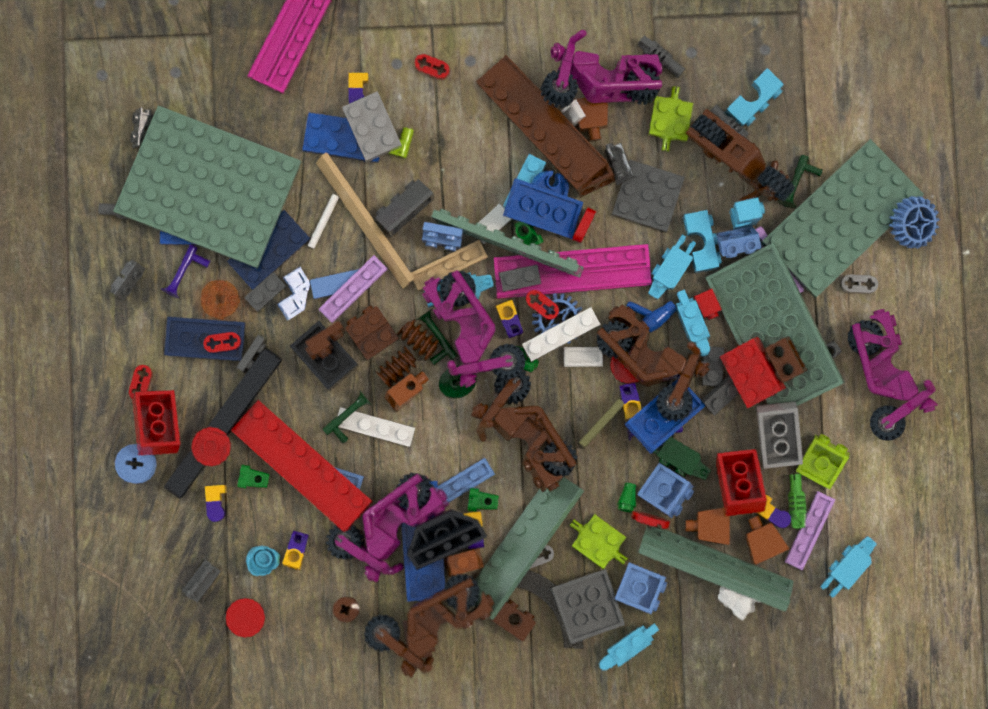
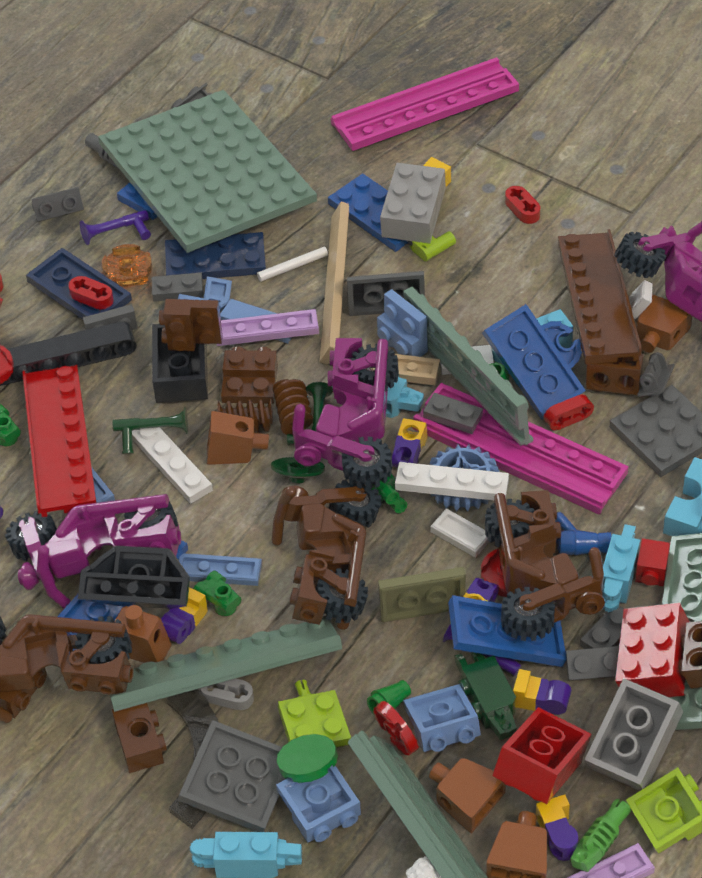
camera: 40 degrees right, 35 degrees down
(539, 308) = (459, 441): red beam -> none
(619, 573) = (307, 758): none -> green tile
(672, 268) = (637, 504): medium azure hinge -> none
(706, 436) = (539, 692): none -> leg

